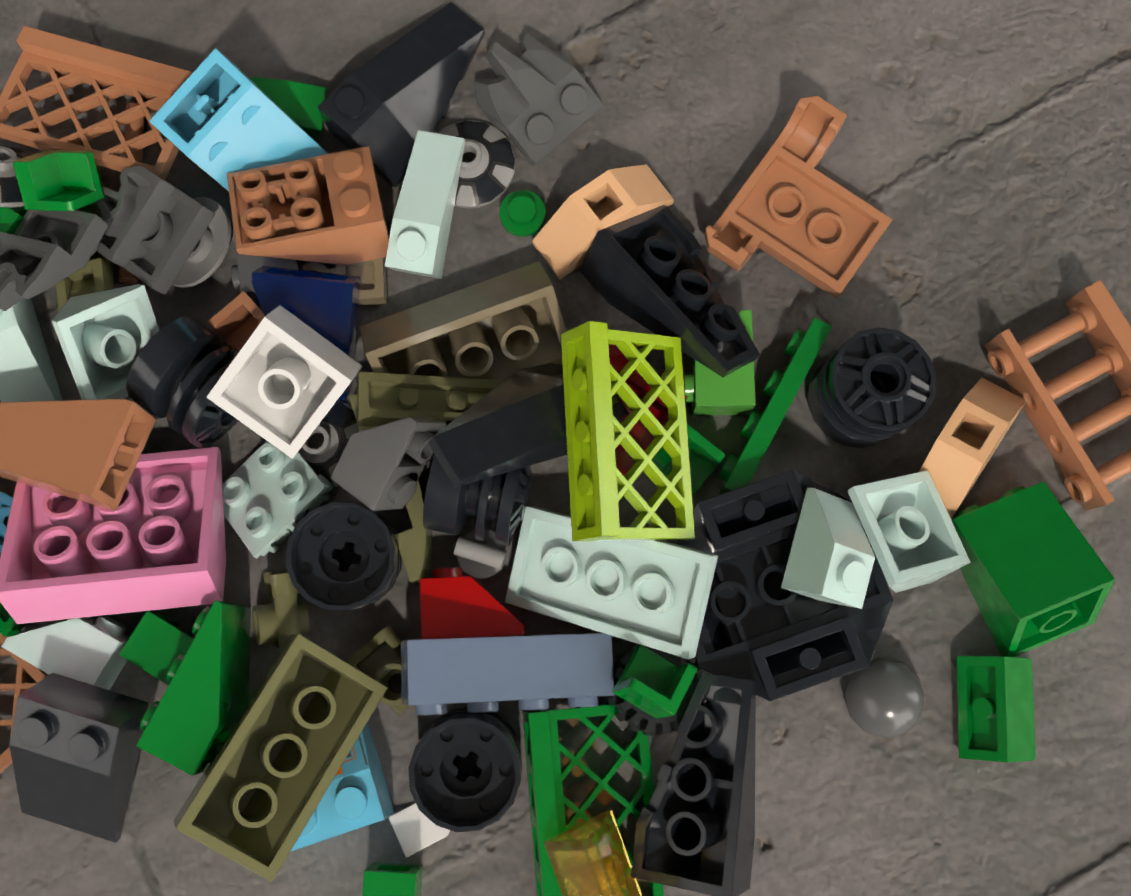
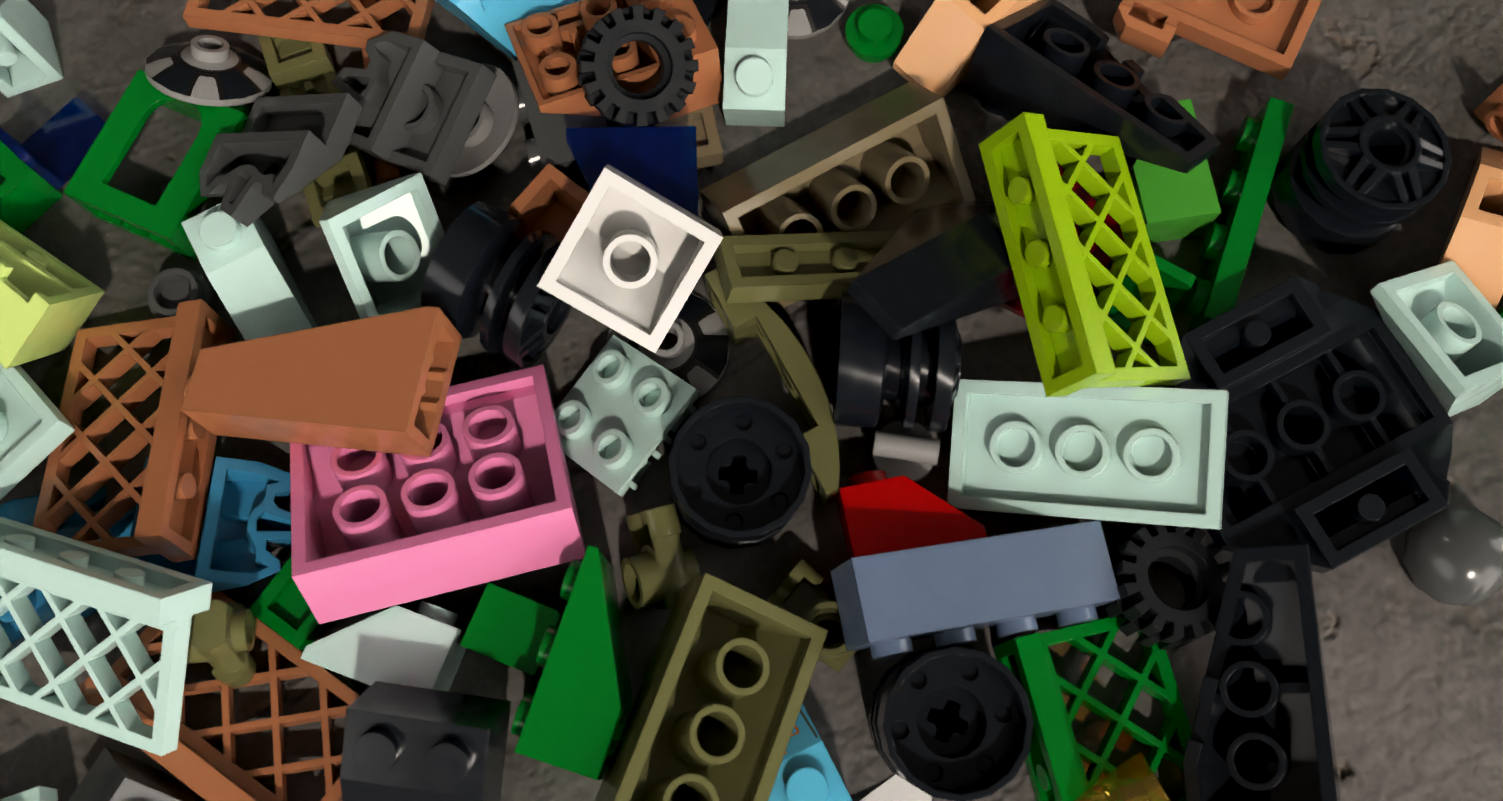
camera: 10 degrees left, 5 degrees down
(58, 180) = (291, 61): green panel -> none
(301, 260) = (674, 55): none -> black tyre
(386, 461) = (775, 338): dark grey slope -> none
(654, 683) = (1178, 573): green panel -> none
(829, 552) = (1370, 372): light aqua slope -> none

